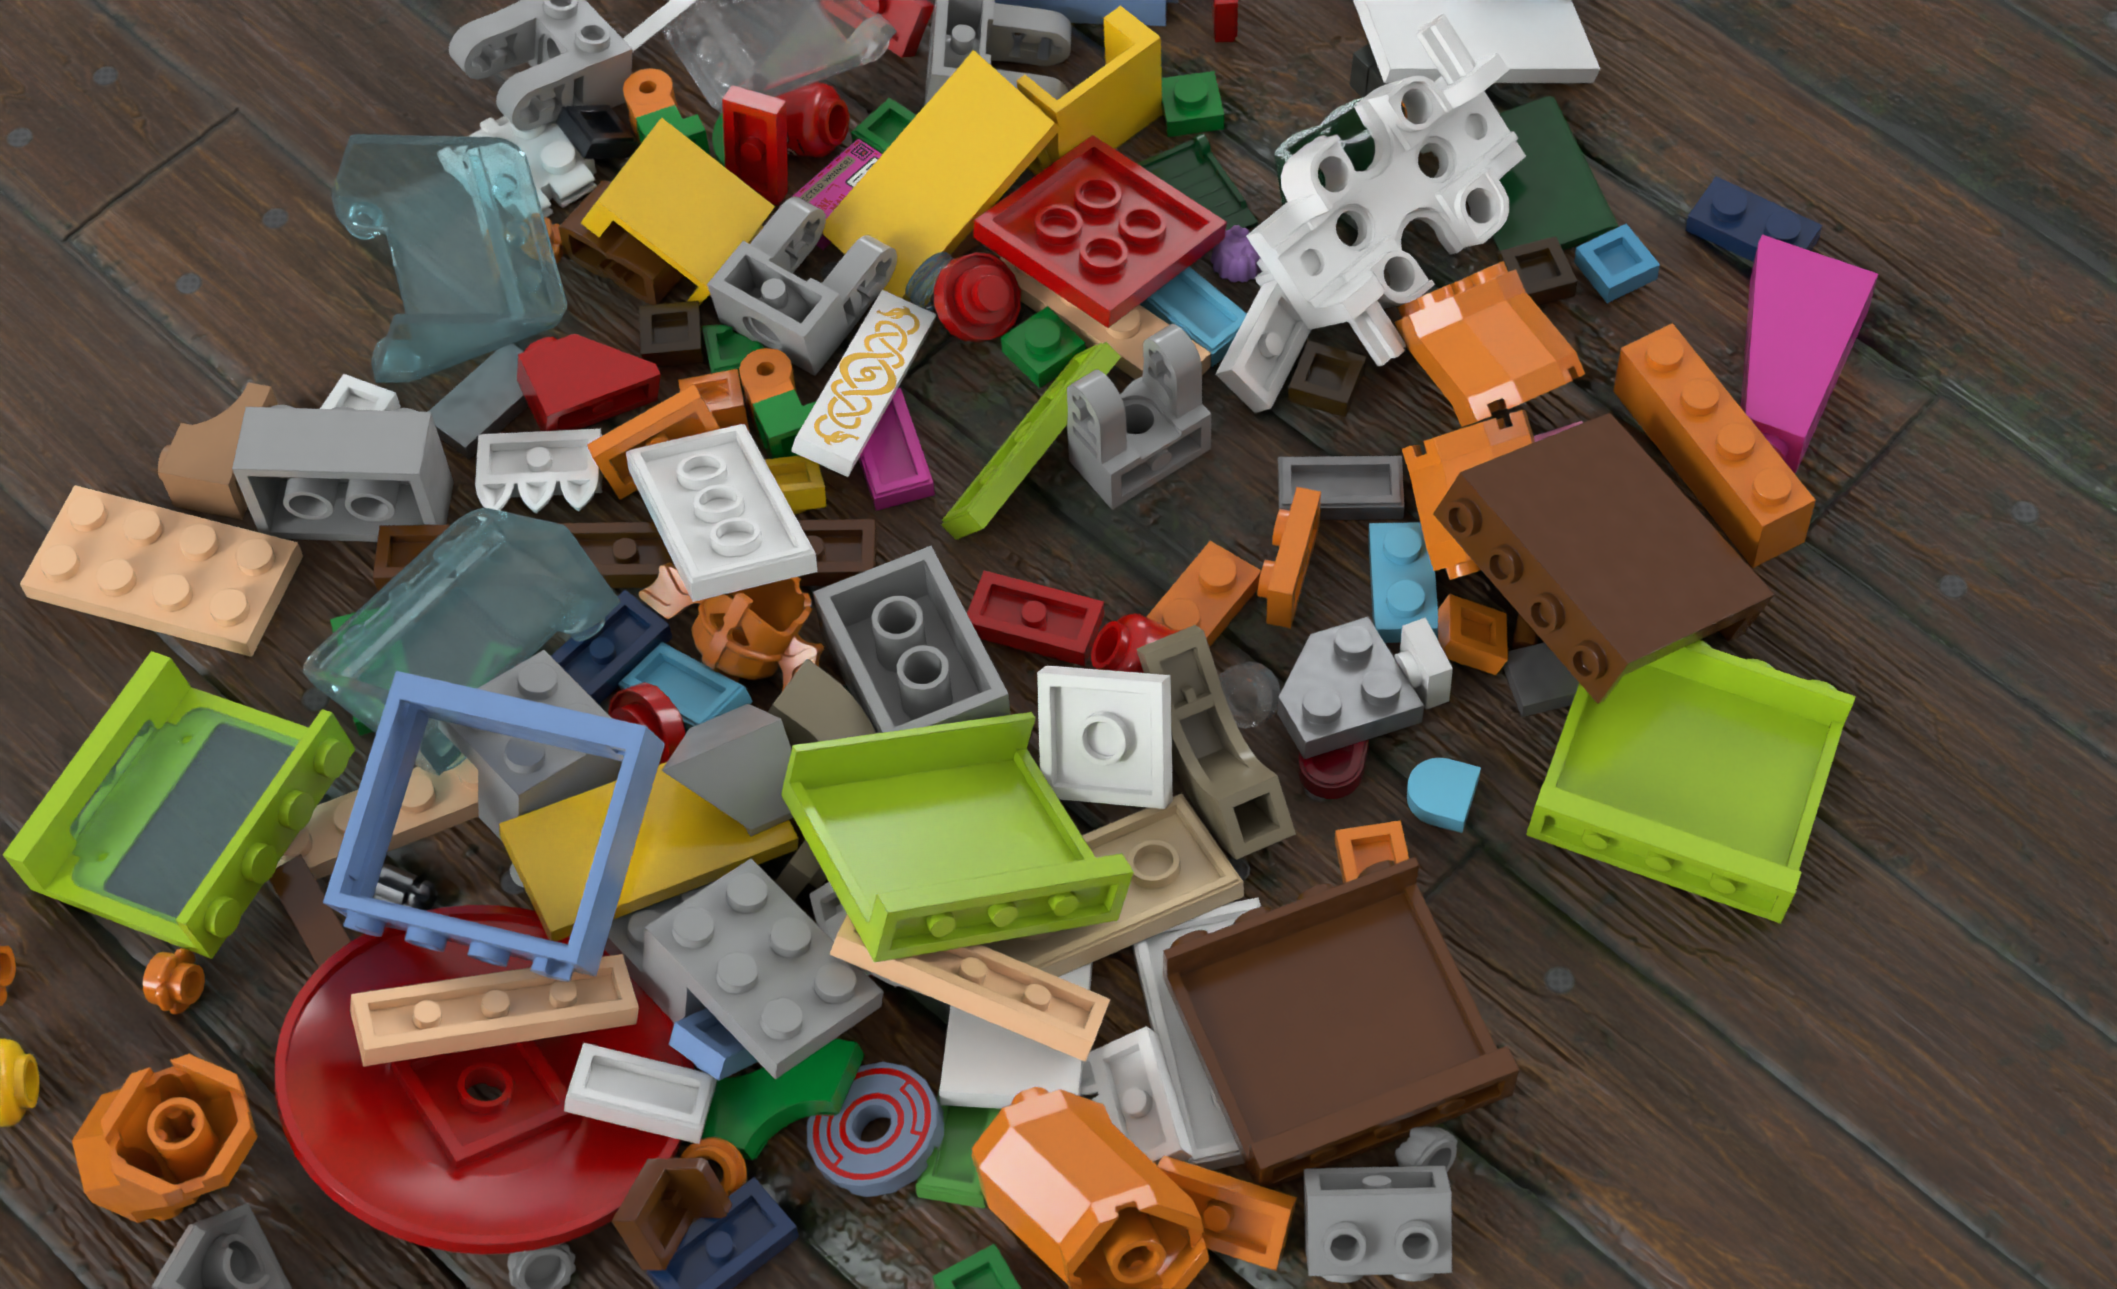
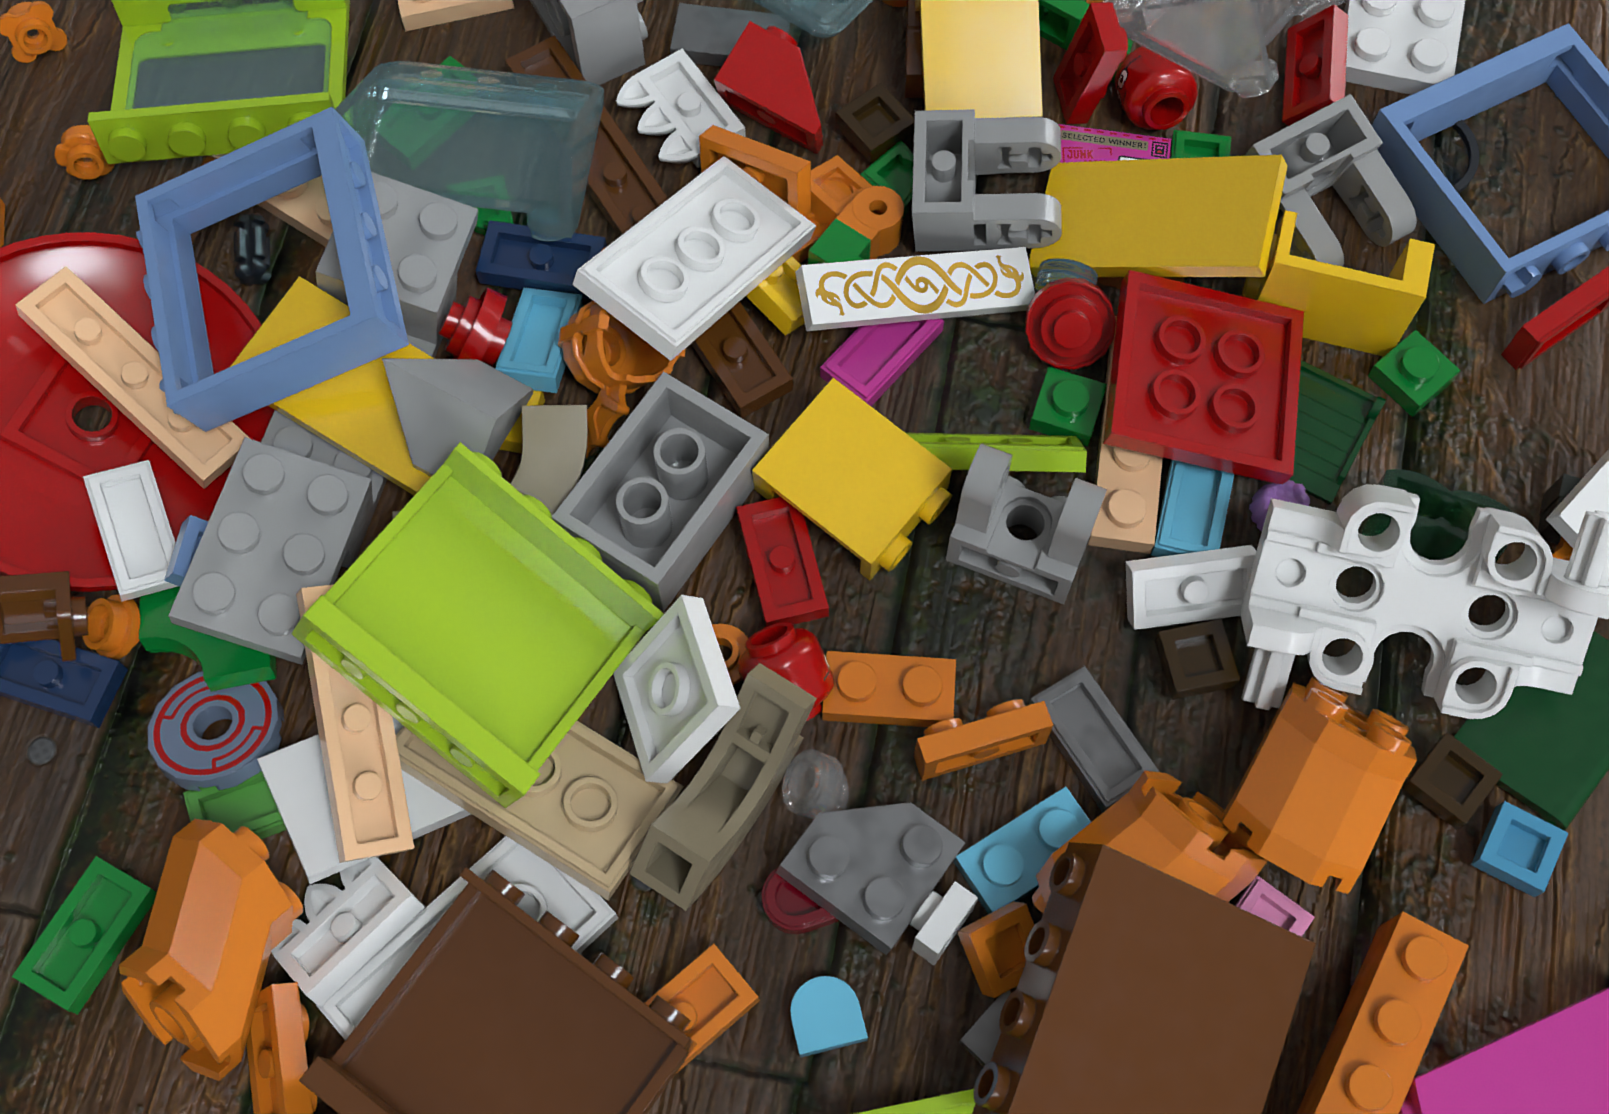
camera: 55 degrees right, 10 degrees up
(1004, 514) = (855, 477): none -> yellow panel

